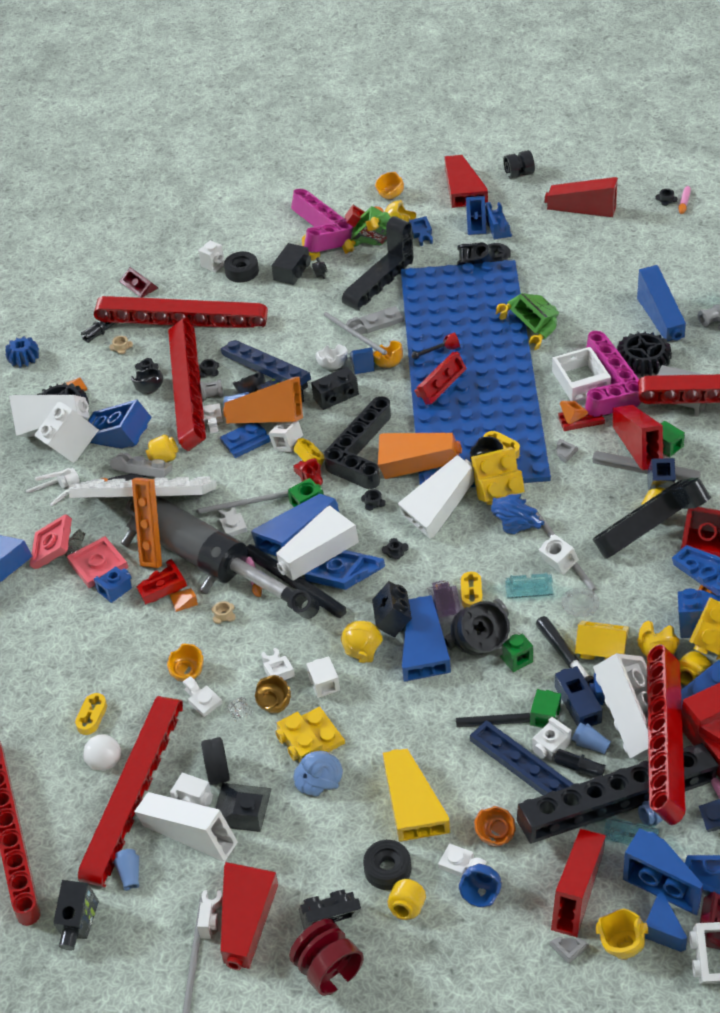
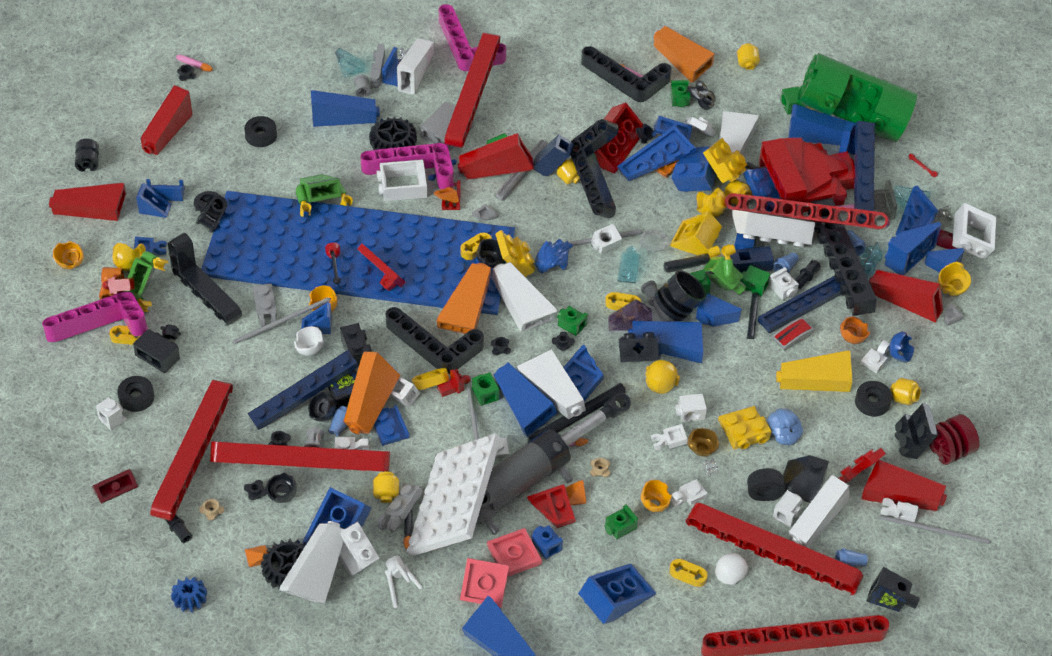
camera: 85 degrees left, 5 degrees up
(54, 652) = (615, 592): none -> blue slope
(144, 638) = (621, 522): none -> green brick
(147, 522) = (507, 491): orange tile -> none
(265, 856) = (861, 463): none -> red plate
(426, 545) = (572, 320): none -> green brick
(475, 763) = (792, 333): none -> slope
(480, 676) = (717, 312): none -> blue slope
(536, 665) = (722, 271): none -> bright green torso
(606, 270) = (260, 123): none -> black tyre

